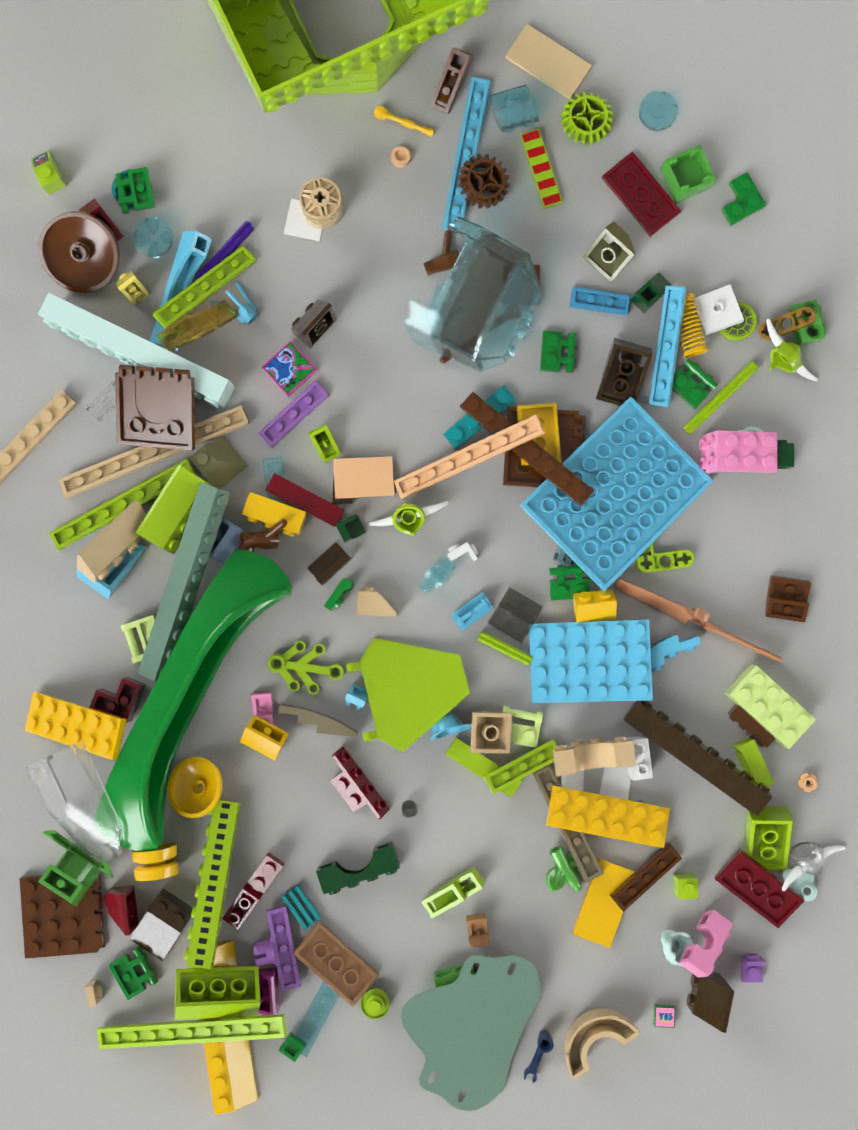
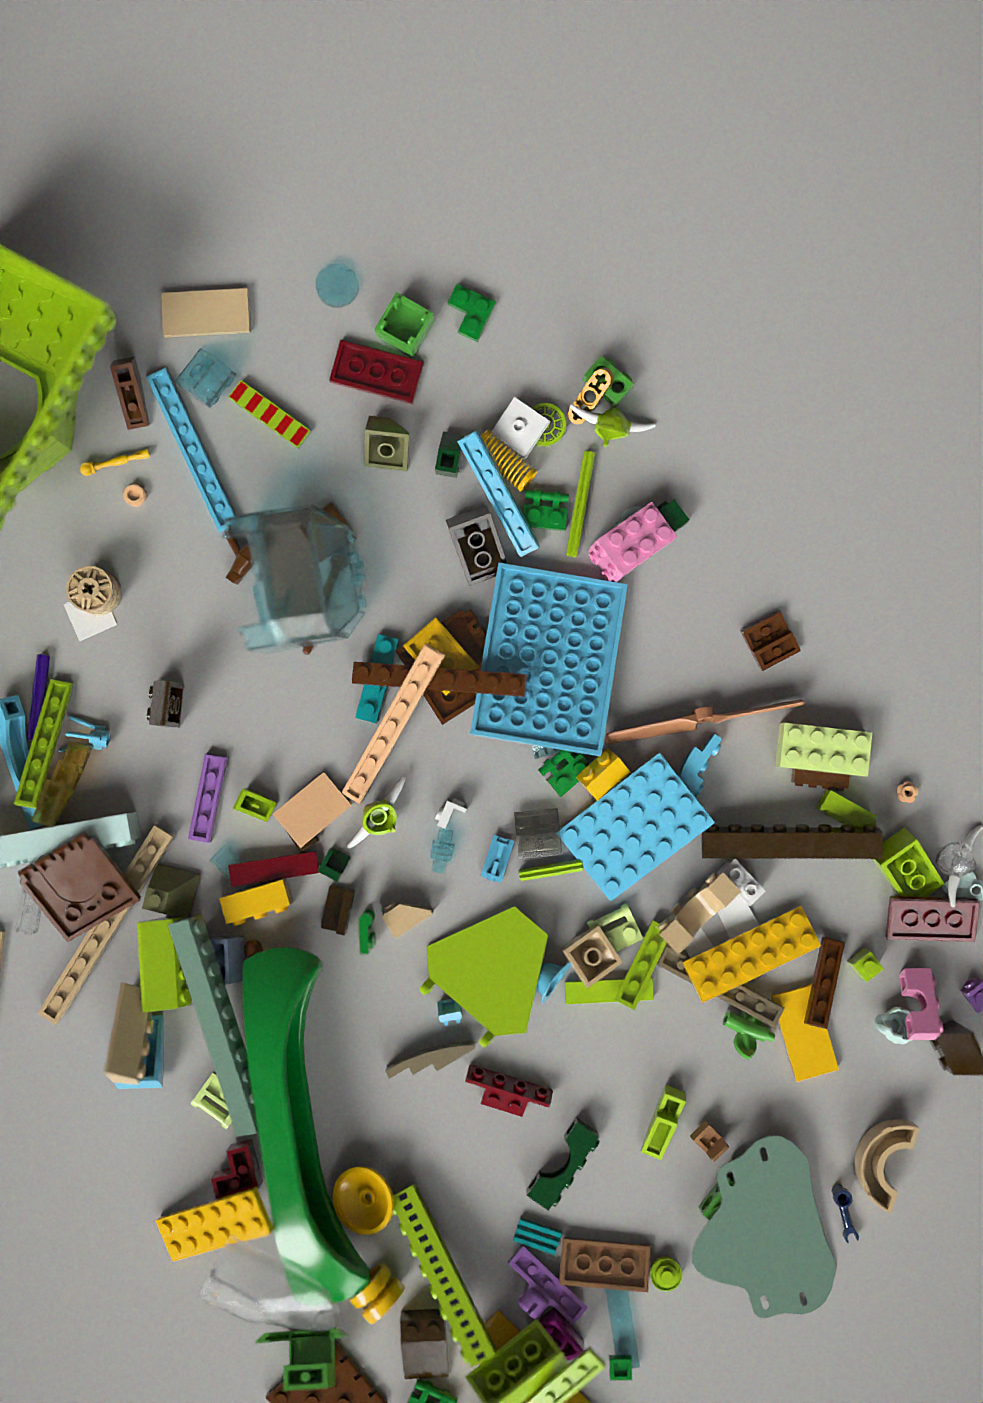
camera: 30 degrees left, 0 degrees up
(108, 511) = (106, 1003): lime tile -> none
(122, 907) = (377, 1355): dark red slope -> none
(253, 891) = (483, 1254): slope -> none
(263, 705) = (373, 1083): bright pink slope -> none
(264, 737) = (393, 1109): yellow brick -> none
(265, 539) = (261, 932): reddish brown piece -> none
(289, 368) = (174, 760): tile -> none
(302, 667) = (381, 1020): lime plant -> none
(409, 808) = (569, 1077): clear smoke hinge -> none
(469, 176) = (233, 462): reddish brown gear -> none
(551, 351) = (398, 572): green plate -> none
(600, 113) = (281, 333): lime gear -> none
(600, 301) = (409, 495): dark azure tile -> none
(655, 560) = (626, 691): lime beam -> none
(664, 1016) = (931, 1094): tile -> none

